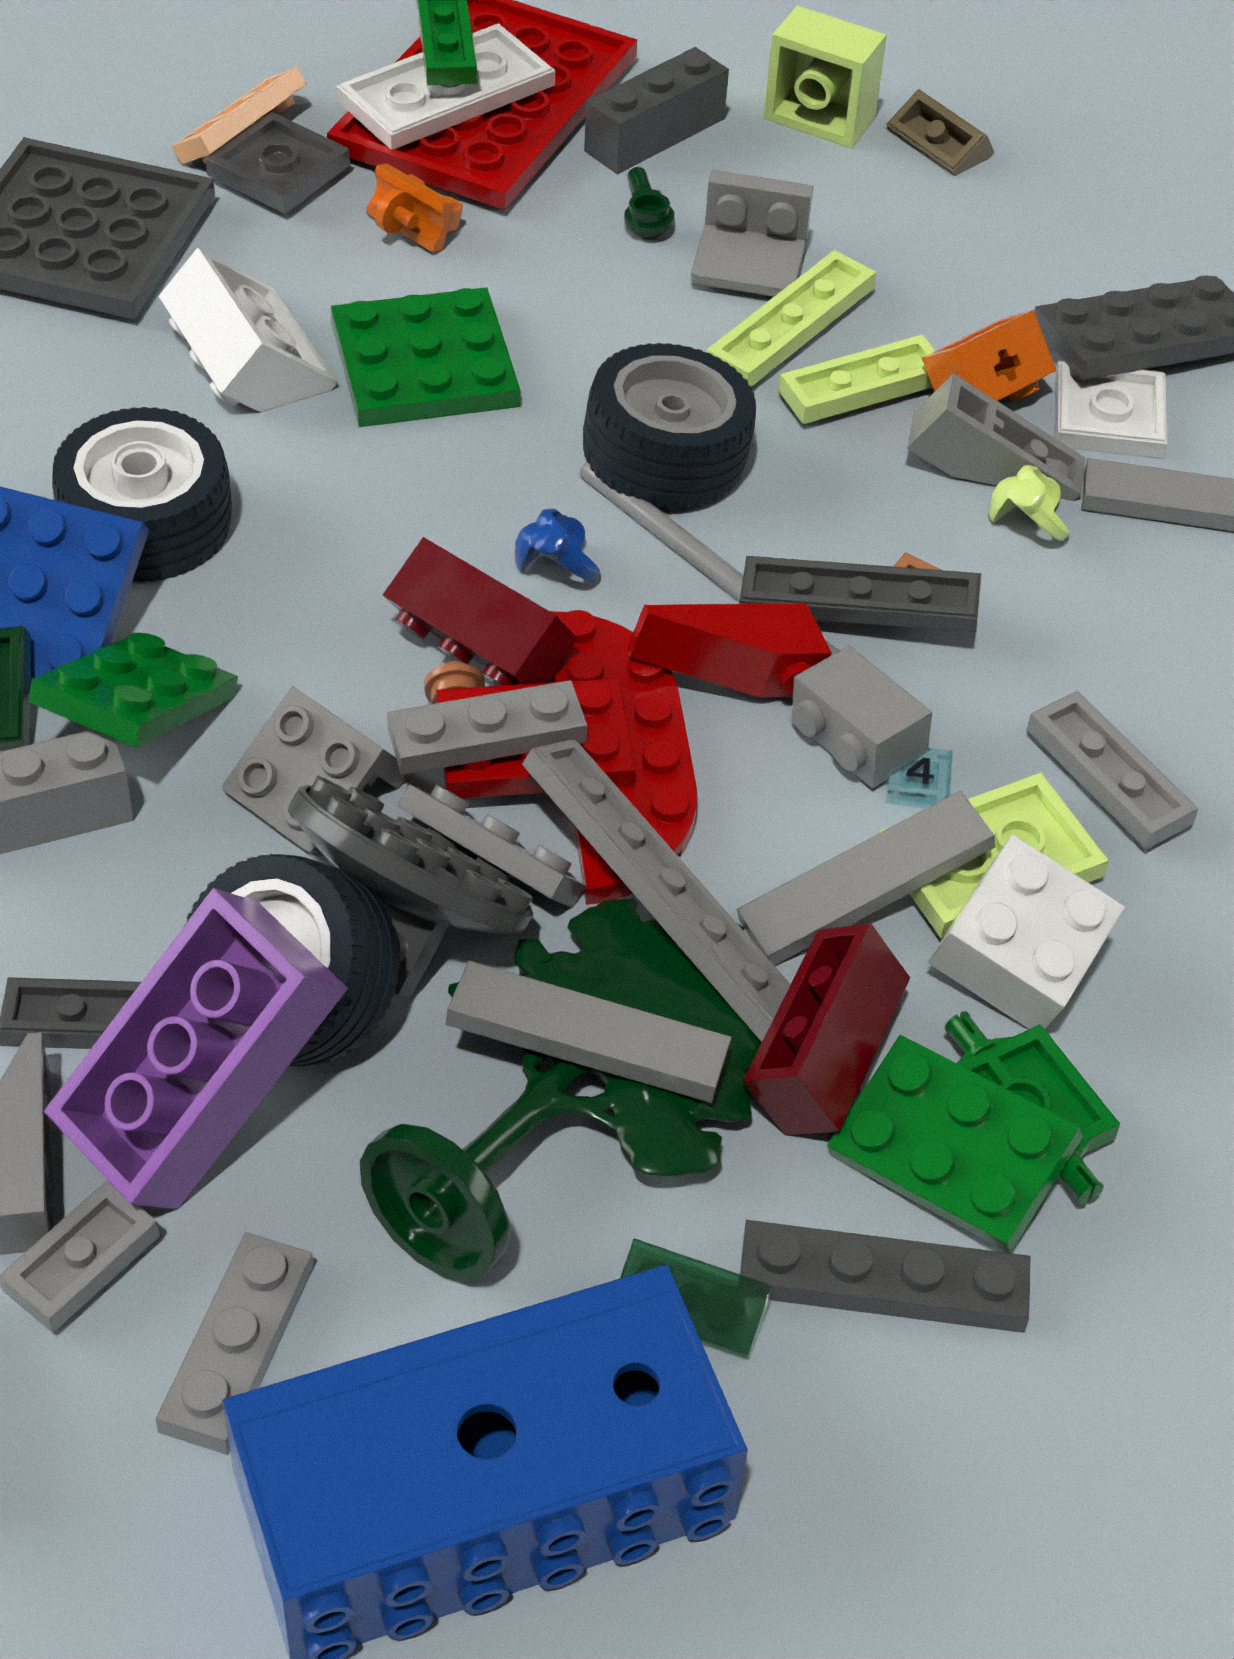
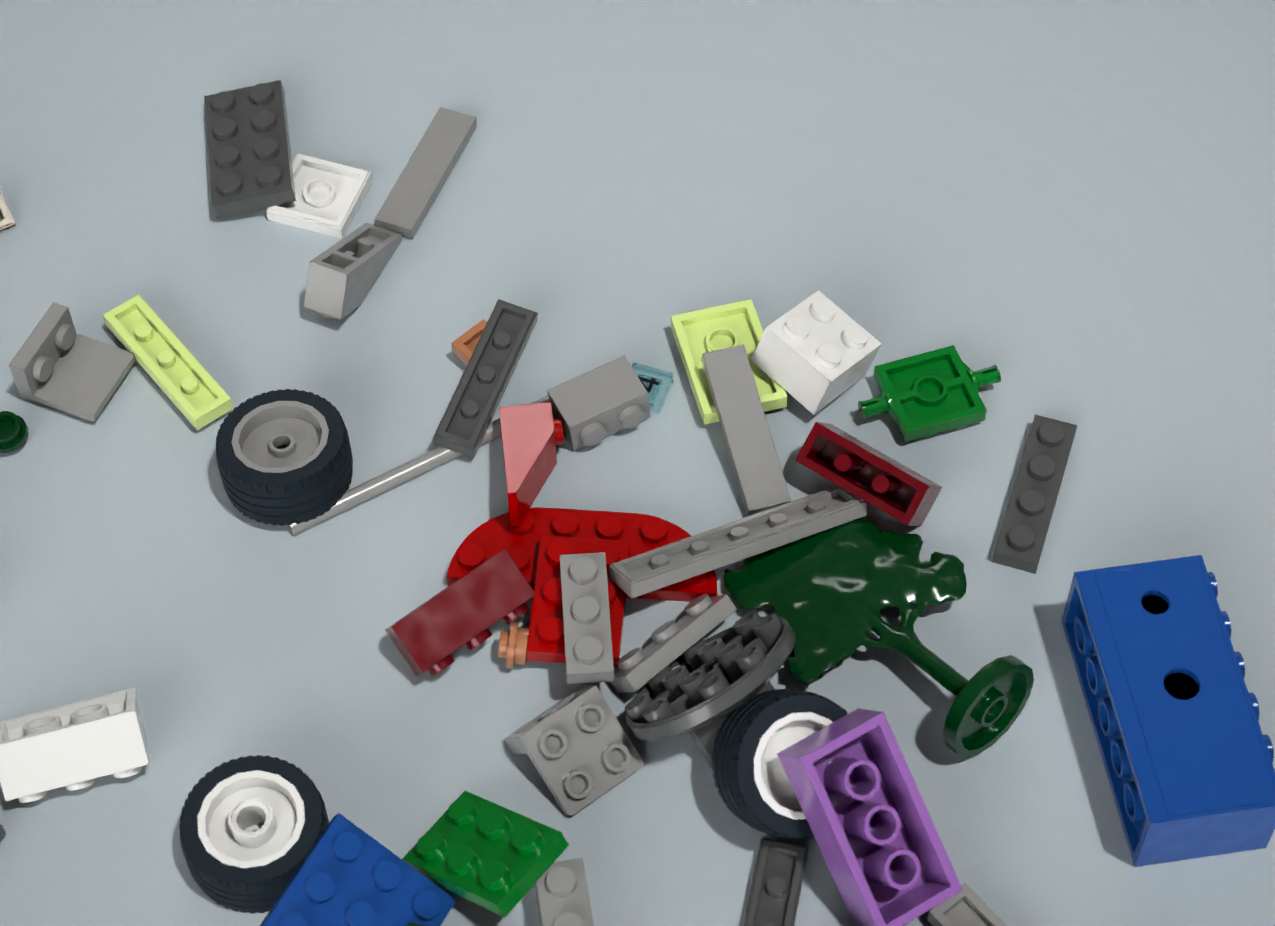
camera: 75 degrees left, 5 degrees up
(235, 1339) = (1048, 852): light grey plate -> none
(424, 356) = (124, 620): green plate -> none
(557, 539) = (379, 562): blue piece -> none
(588, 1031) = (861, 602): light grey tile -> none
(720, 1302) = (1044, 592): clear green plate -> none
(857, 379) = (251, 331): yellowish green plate -> none
(955, 1142) = (959, 428): green plate -> none
(997, 358) = (272, 247): orange brick -> none
(1034, 496) = (409, 260): yellowish green piece -> none
(1112, 769) = (667, 280): light grey plate -> none

